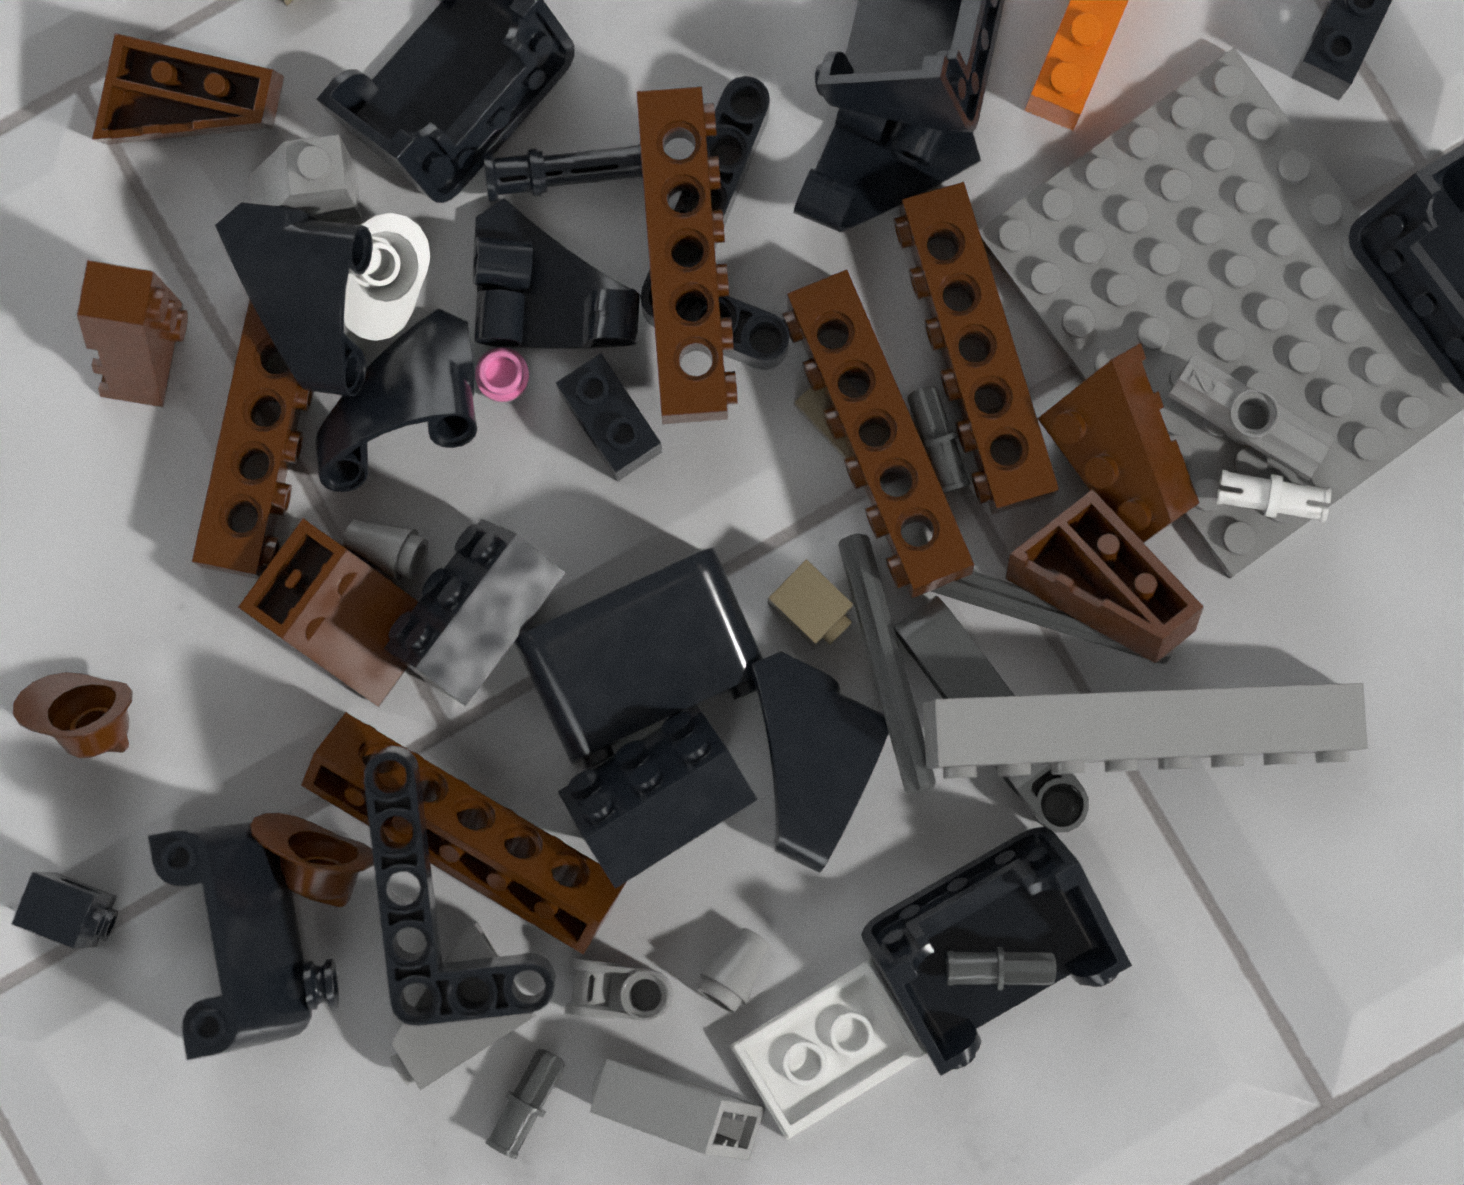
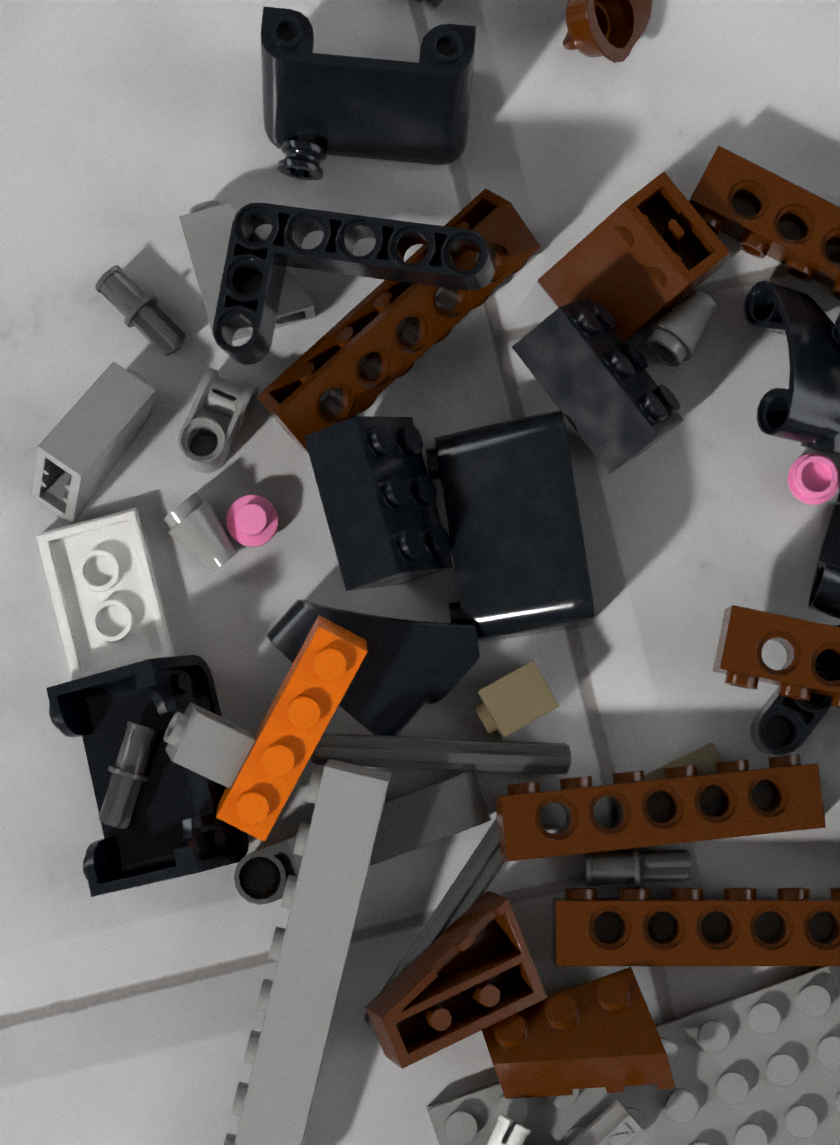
camera: 110 degrees right, 0 degrees up
(313, 858) = (418, 183): reddish brown piece -> none
(609, 417) = (746, 563): black brick -> none
(708, 922) = (252, 521): none -> bright pink plate
(908, 812) = (292, 728): none -> orange brick
(950, 890) = (208, 744): none -> light grey brick

